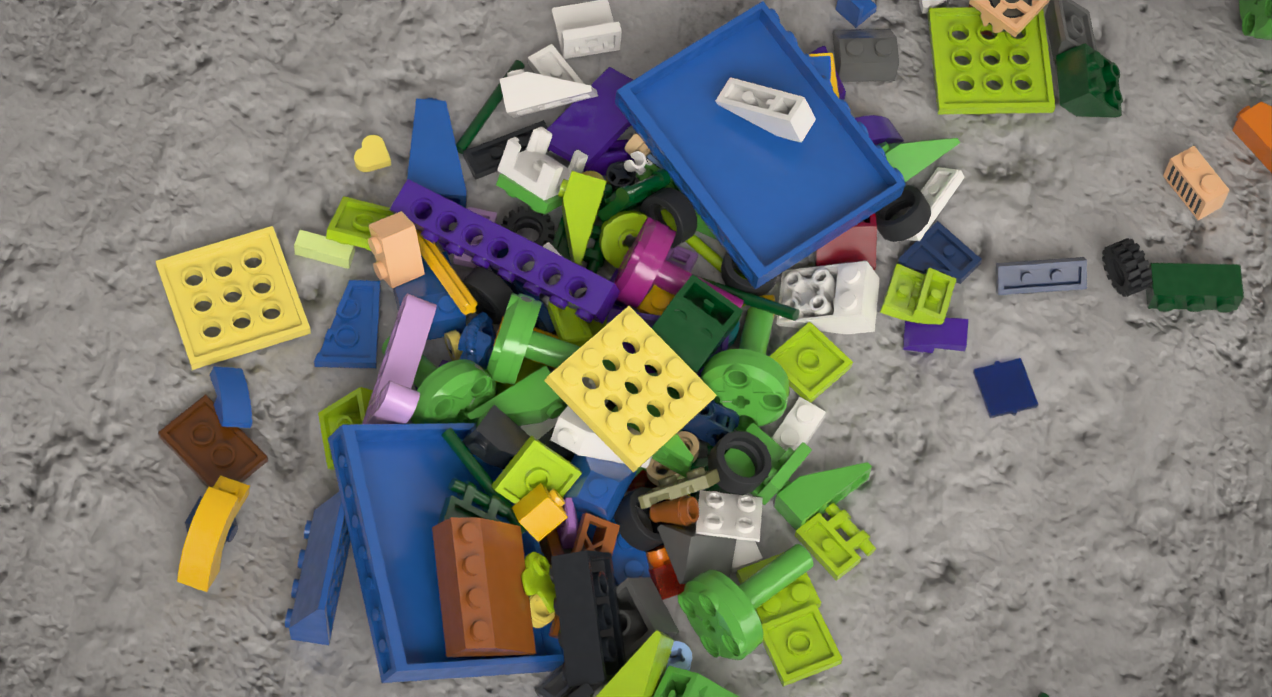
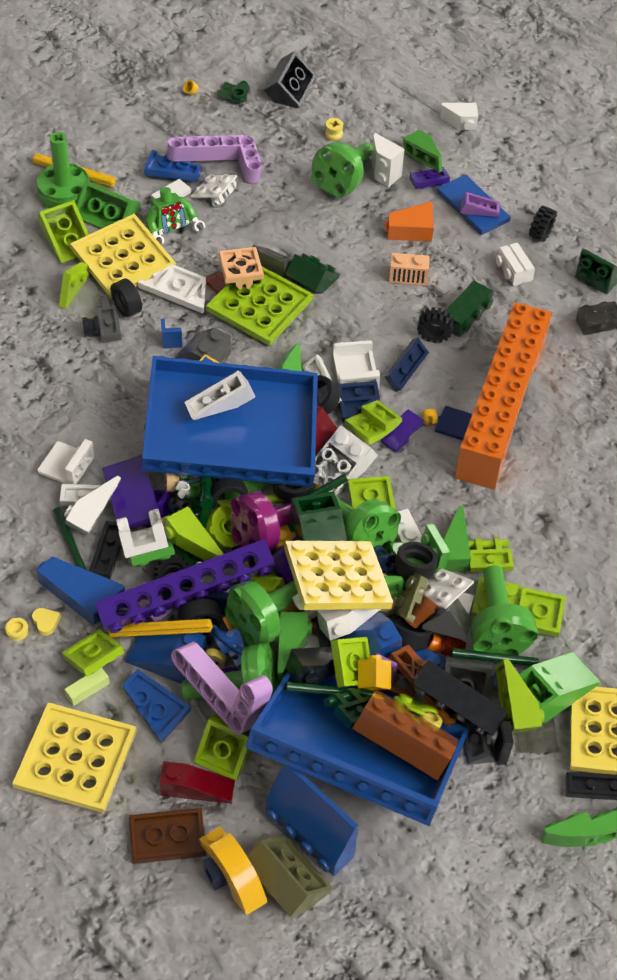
camera: 50 degrees left, 10 degrees down
(233, 397) = (150, 801): blue slope -> none
(252, 591) = (288, 875): none -> olive slope
(289, 431) = (194, 783): none -> dark red slope
(340, 135) = (16, 629): none -> light yellow tile
(395, 250) = (132, 641): light nougat brick -> none
(690, 631) = (493, 657): none -> dark green bar
(983, 351) = (429, 416): none -> yellow hinge
(991, 222) = (355, 362): none -> white panel
(1000, 426) = (501, 396): none -> orange arch

